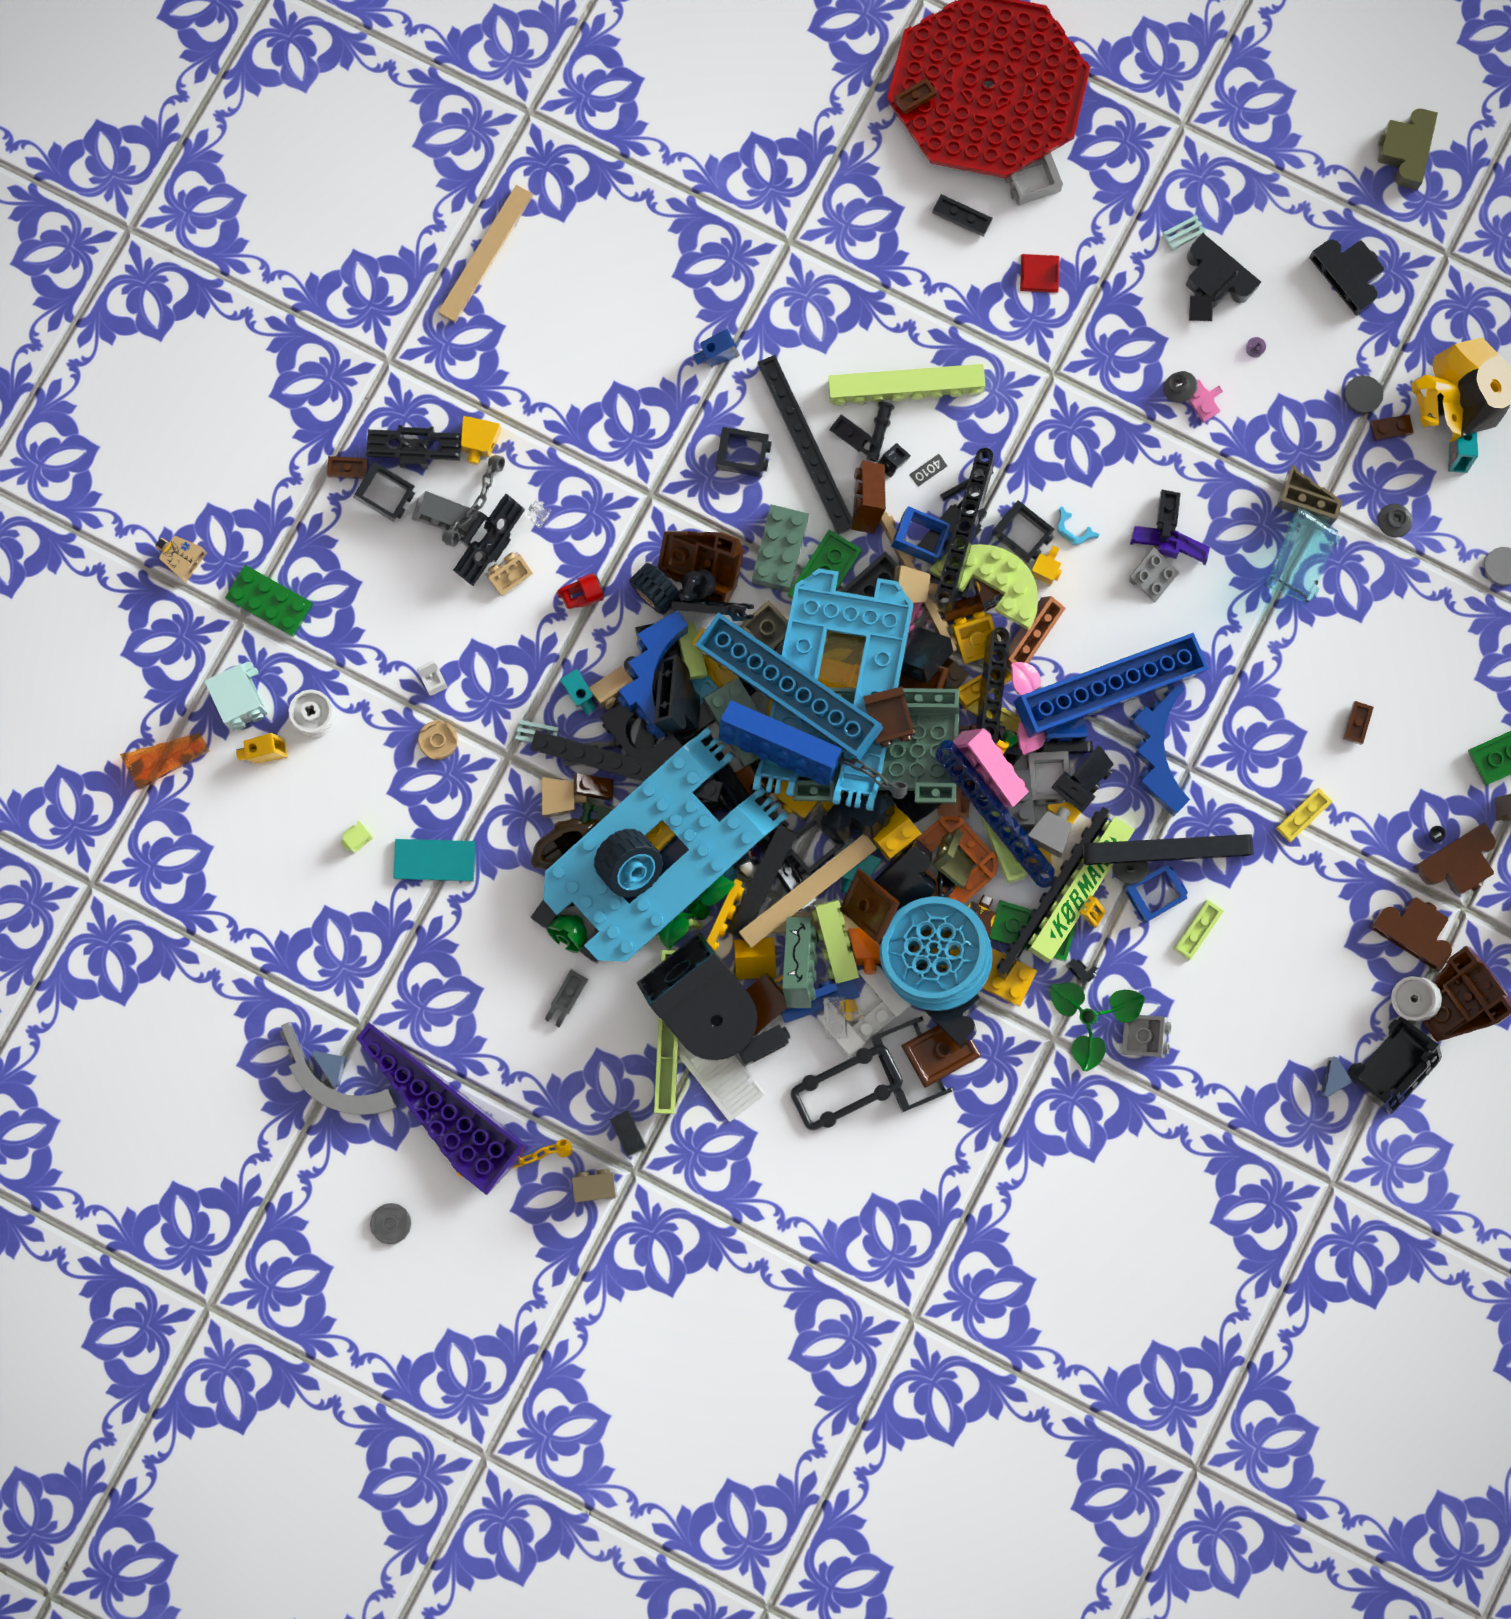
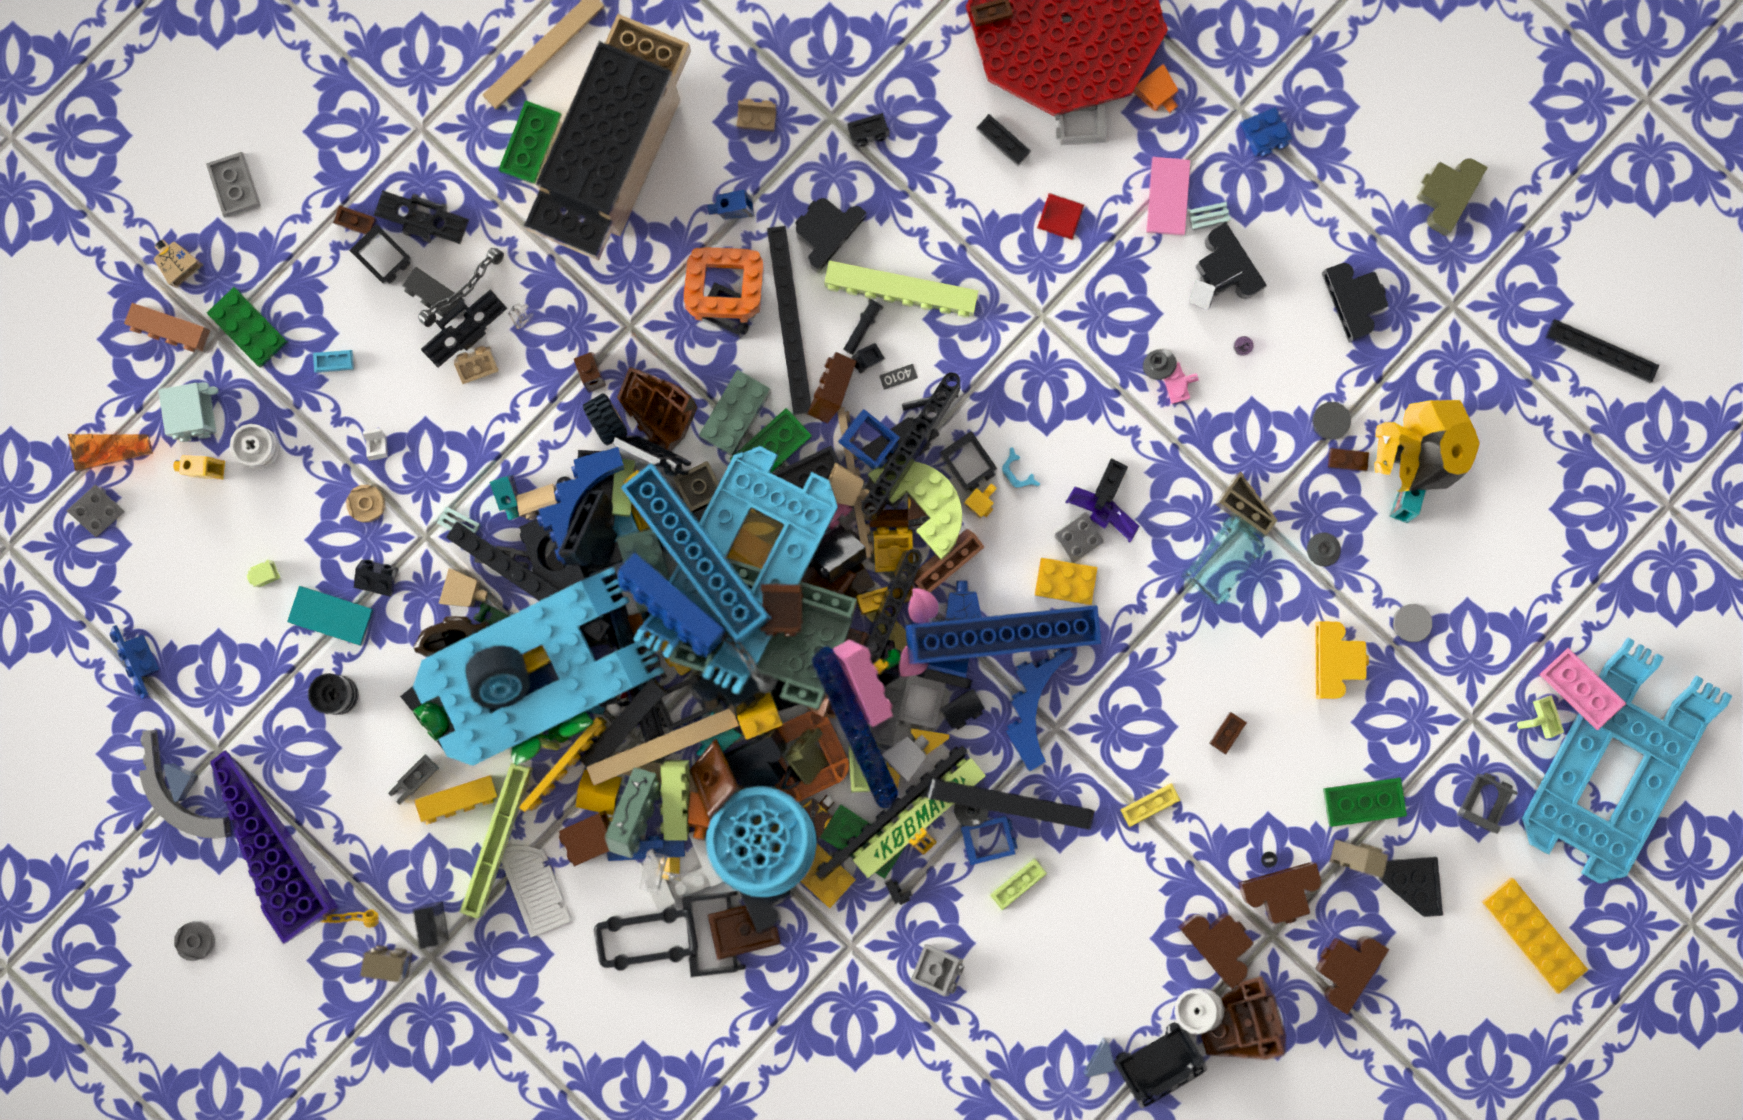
camera: 15 degrees right, 5 degrees up
(169, 822) = (95, 510): none -> light grey hinge
(190, 622) = (168, 327): none -> nougat brick
(215, 466) = (233, 184): none -> light grey tile
(252, 957) = (136, 657): none -> blue bracket
(365, 609) = (333, 361): none -> medium azure plate
(453, 928) = (322, 694): none -> black wheel
(469, 809) = (375, 577): none -> black bracket
(478, 438) = (484, 227): yellow torso -> none
(499, 344) = (530, 142): none -> green plate
(583, 313) = (609, 138): none -> black piece
(590, 591) = (545, 399): red piece -> none
(593, 786) = (494, 589): reddish brown plate -> none
(609, 1007) = (455, 798): none -> yellow wedge
(623, 547) = (589, 371): none -> reddish brown torso
(697, 585) = (644, 428): black piece -> none
(701, 1001) = (525, 826): black piece -> none
(714, 257) = (756, 115): none -> tan bracket
(739, 447) = (723, 307): none -> orange plate
(765, 1044) = (579, 877): black window -> none
(816, 348) = (826, 230): none -> black brick
(828, 241) = (868, 130): none -> black bracket
(853, 435) = (836, 324): black hinge -> none
(1059, 667) = (962, 603): none -> blue torso
(1068, 998) = (880, 966): green plant -> none
(1073, 791) = (937, 724): black plate -> none
(1097, 127) = (1158, 90): none -> orange torso
(1138, 225) = (1168, 196): none -> bright pink tile
(1153, 621) = (1065, 581): none -> yellow plate
(1214, 139) = (1266, 132): none -> blue plate
(1442, 621) = (1336, 660): none -> yellow brick

